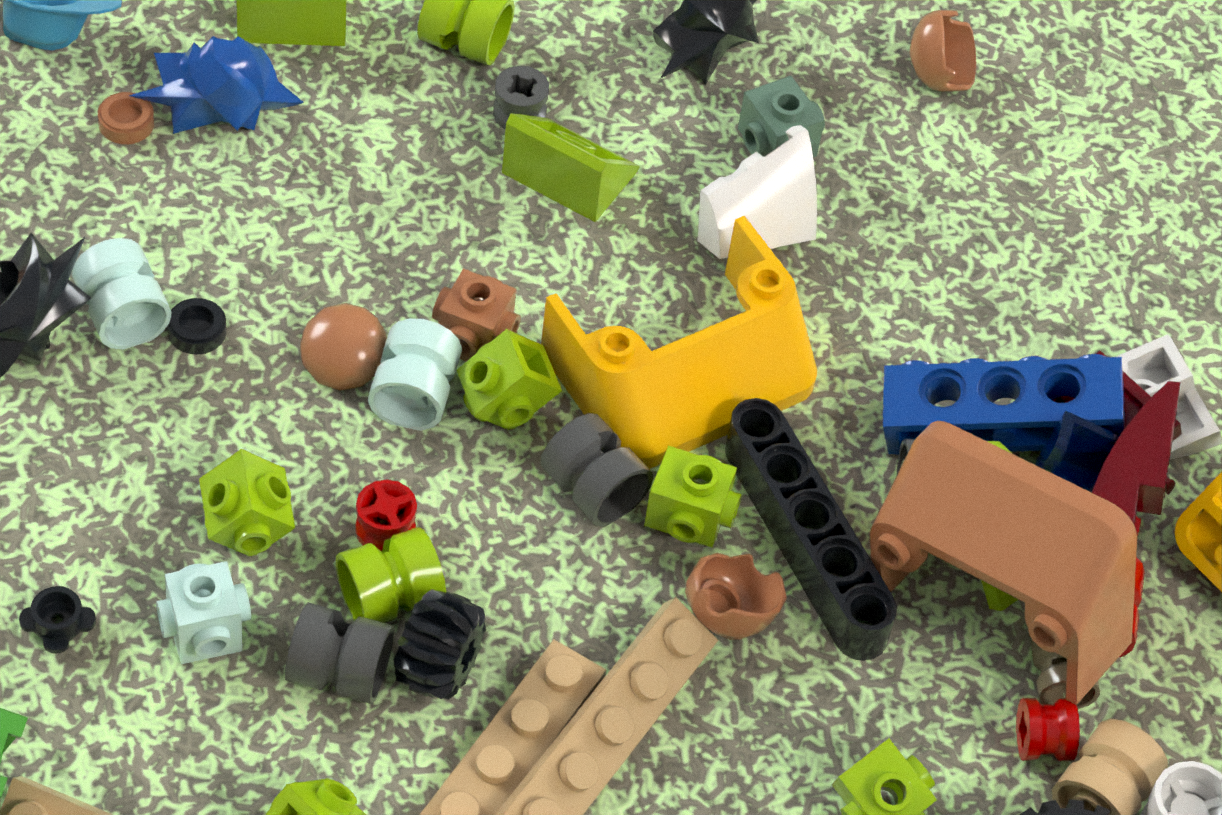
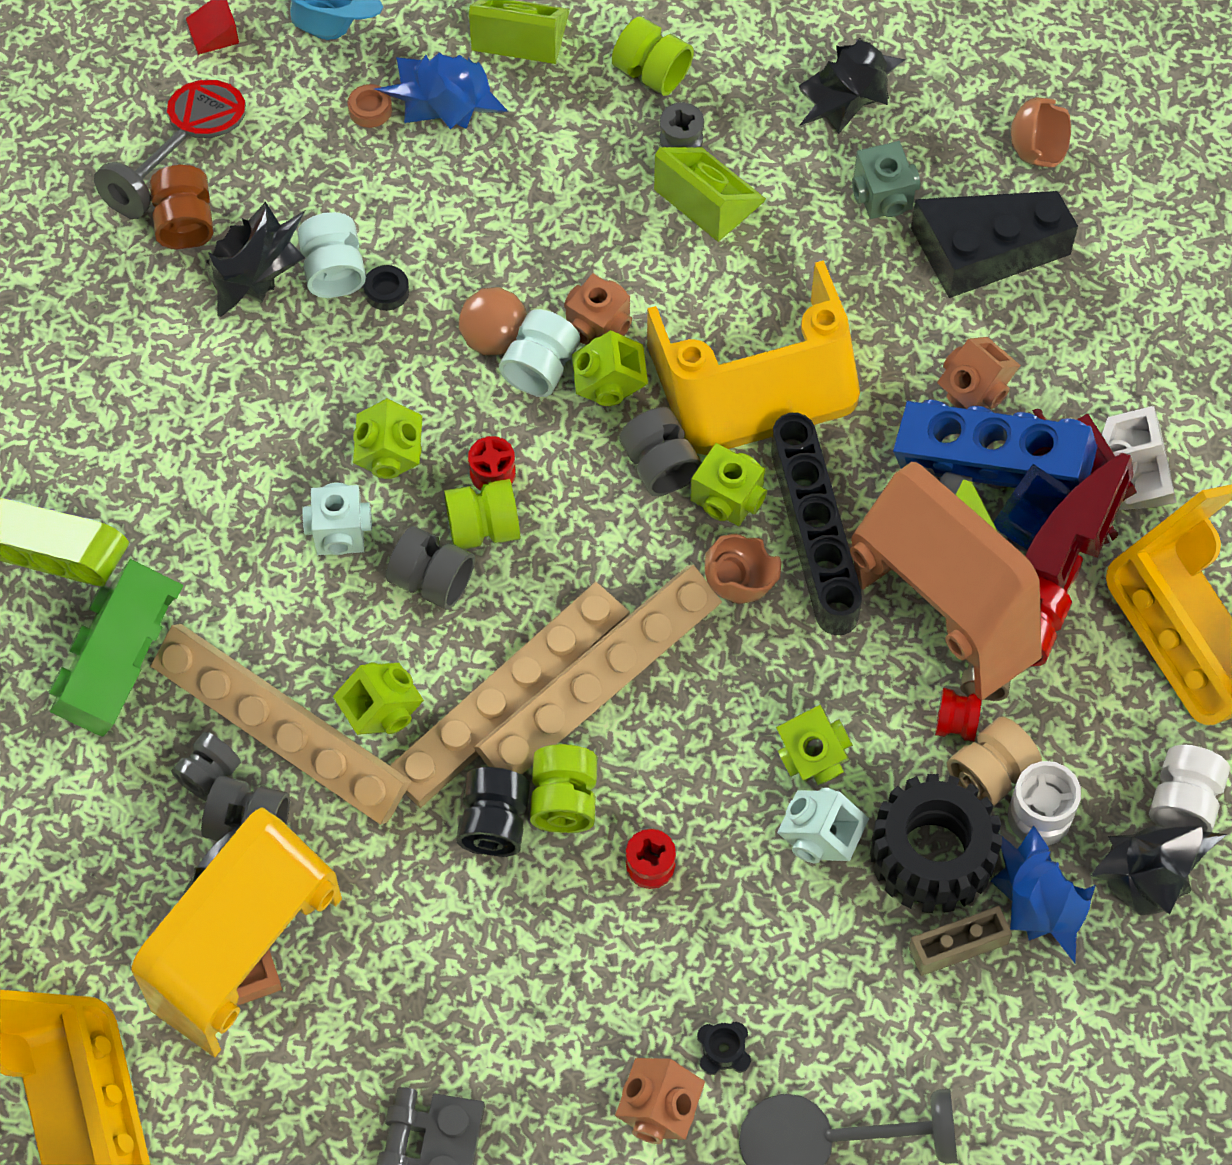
camera: 20 degrees right, 10 degrees up
(52, 603) = (230, 494): black plate -> none
(439, 644) = (504, 573): black gear -> none
(771, 192) = (853, 244): white slope -> none
(920, 171) = (991, 236): none -> black wedge
(968, 313) = (977, 374): none -> nougat brick

